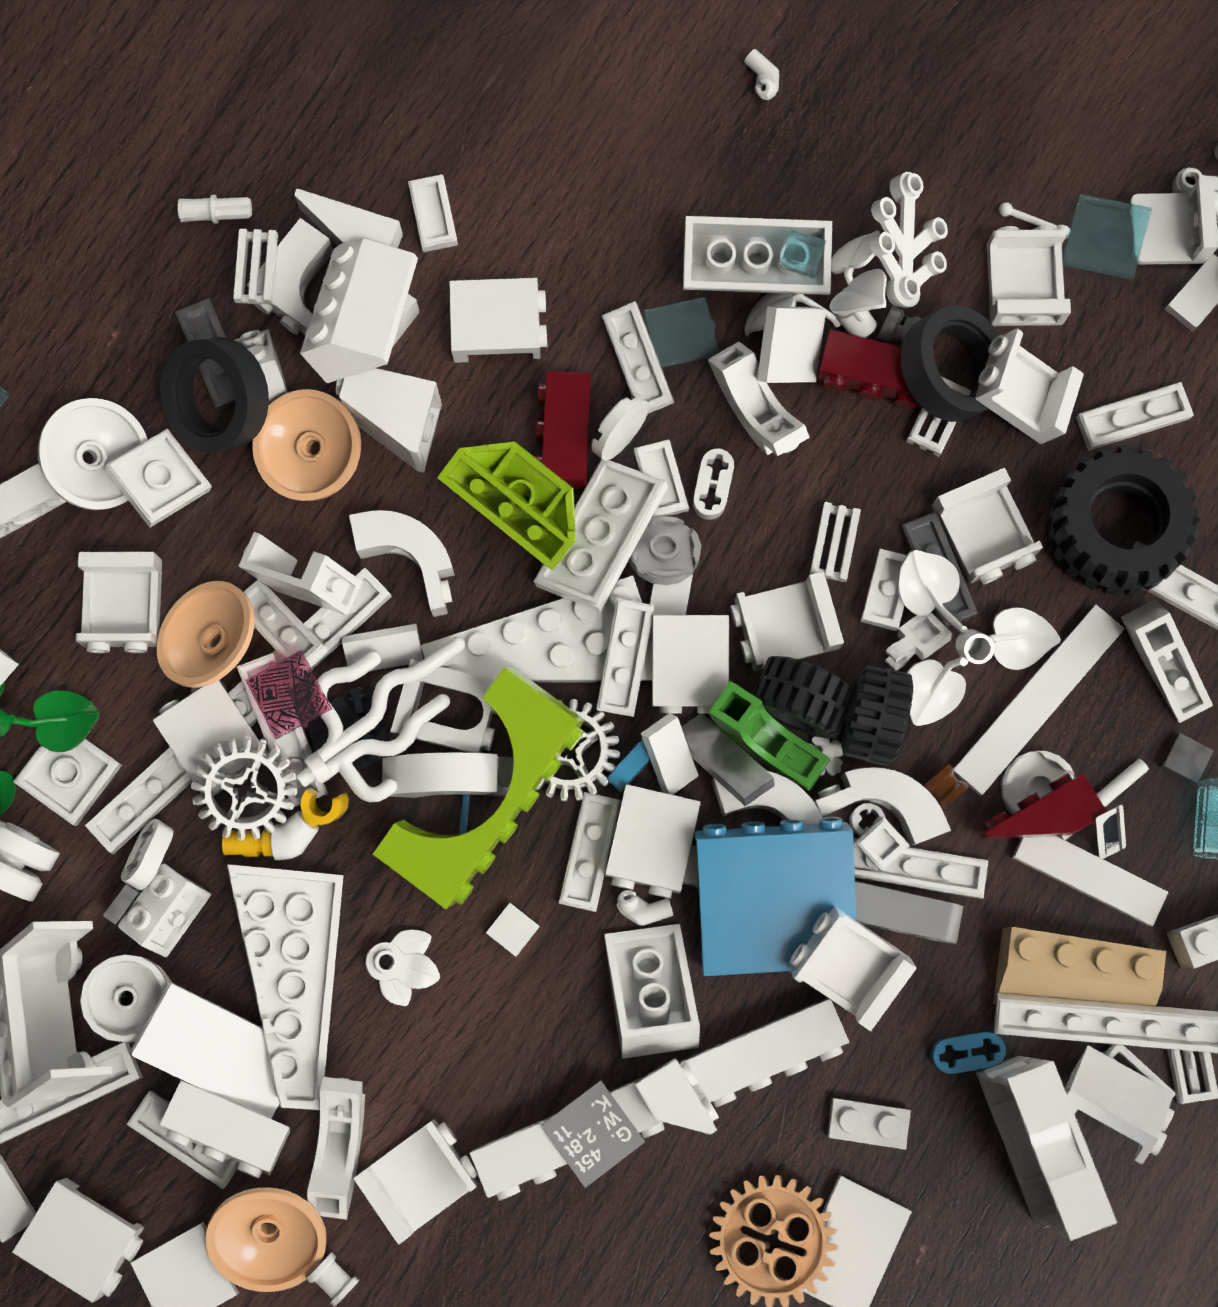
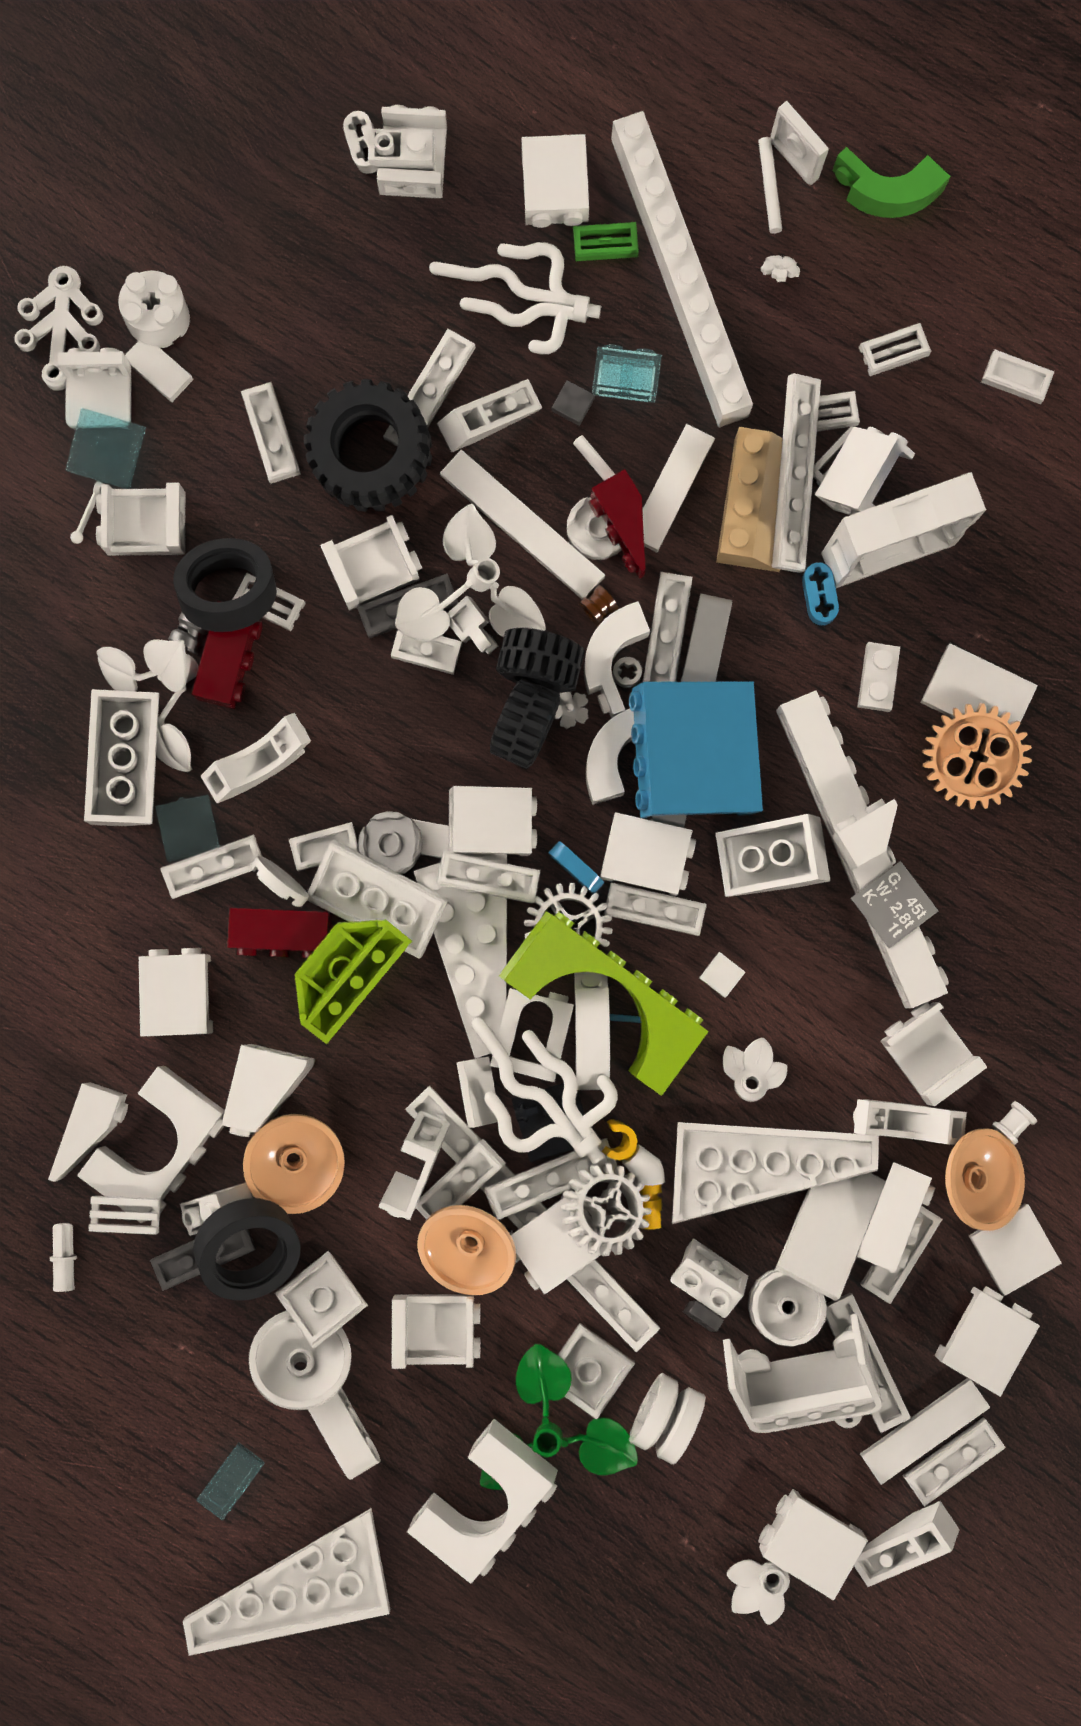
camera: 90 degrees left, 5 degrees up
(147, 854) = (661, 1295): white beam -> none
(288, 694) = (523, 1172): clear pink piece -> none
(358, 309) = (170, 1116): white slope -> none
(400, 534) = (374, 1078): white arch -> none
(433, 213) = (70, 1054): white tile -> none
(640, 911) = (706, 864): white arm -> none
(669, 754) = (573, 839): white tile -> none
(705, 482) = (331, 792): white beam -> none
(726, 760) = (578, 792): flat silver tile -> none
(757, 732) = (560, 754): bright green arch -> none
(787, 622) = (455, 737): white panel -> none
(791, 344) = (206, 728): white tile -> none
(802, 253) = (123, 716): clear light blue tile -> none
(841, 512) = (355, 689): white tile -> none
(852, 966) = (755, 685): white panel -> none
(881, 843) = (648, 659): white tile -> none
(904, 286) = (145, 627): white plant -> none
(1027, 389) = (249, 522): white panel -> none
(1111, 832) = (638, 468): sticker -> none

